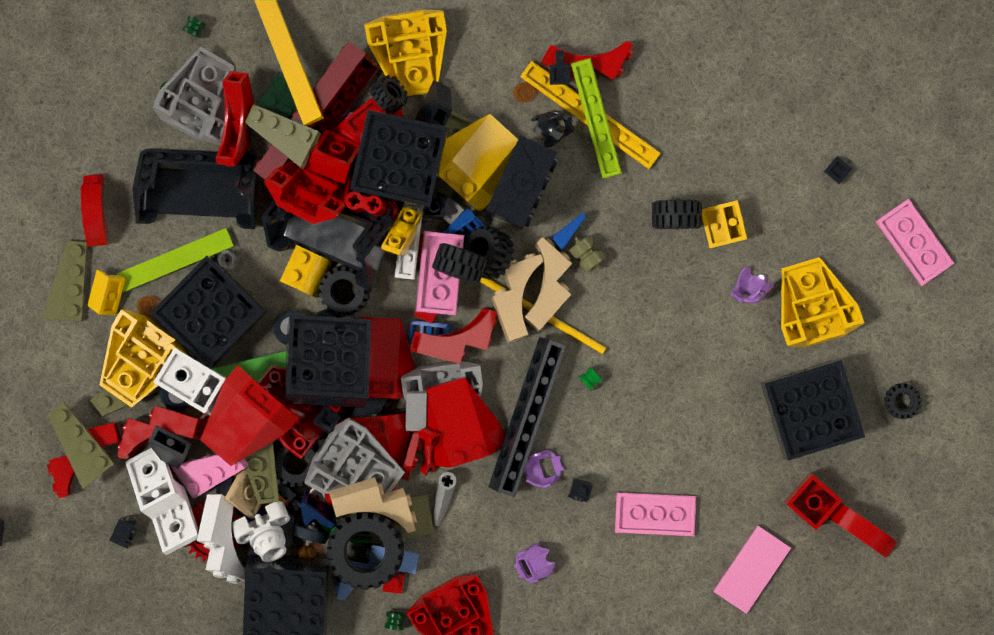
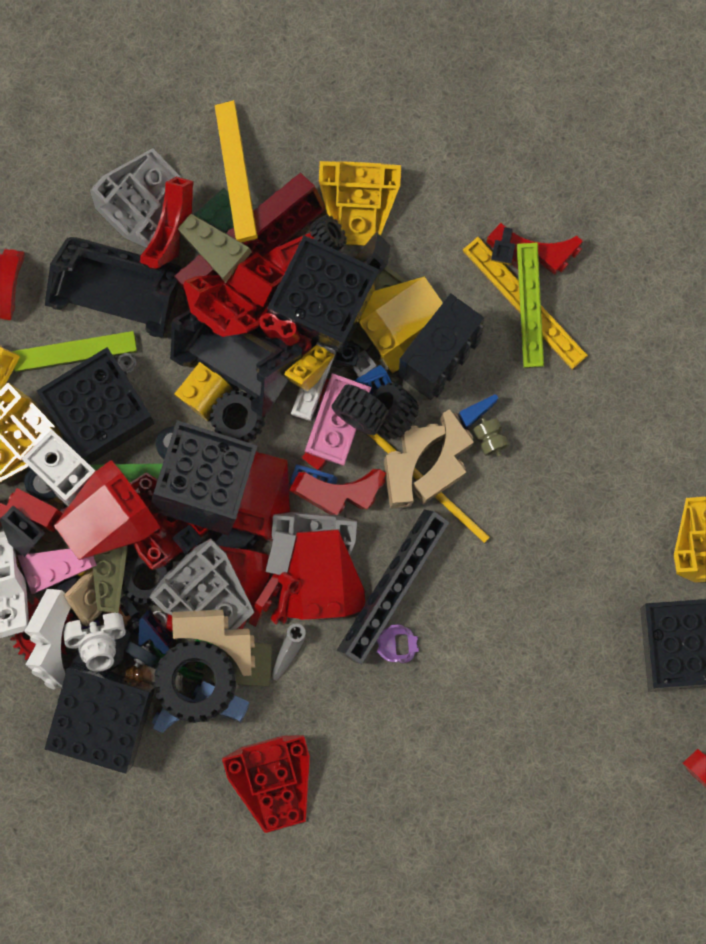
camera: 15 degrees right, 10 degrees down
(146, 305) = (31, 388): clear orange plate -> none
(194, 27) = (150, 130): dark green wheel -> none
(395, 585) = (215, 728): red plate -> none
(395, 620) = (207, 766): dark green wheel -> none
(523, 92) = (462, 265): clear orange plate -> none
(536, 561) = (369, 741): medium lavender helmet -> none
(550, 128) = (481, 302): black helmet -> none
(580, 490) = (430, 675): black brick -> none
(590, 378) = (466, 564): green wheel -> none
(655, 514) = (503, 719): bright pink tile -> none
(676, 214) = (591, 416): black tyre -> none
(724, 224) = (637, 438): yellow brick -> none
(752, 569) = (591, 800): bright pink tile -> none
(753, 285) = (653, 509): medium lavender helmet -> none
(813, 501) = (669, 741): red brick -> none

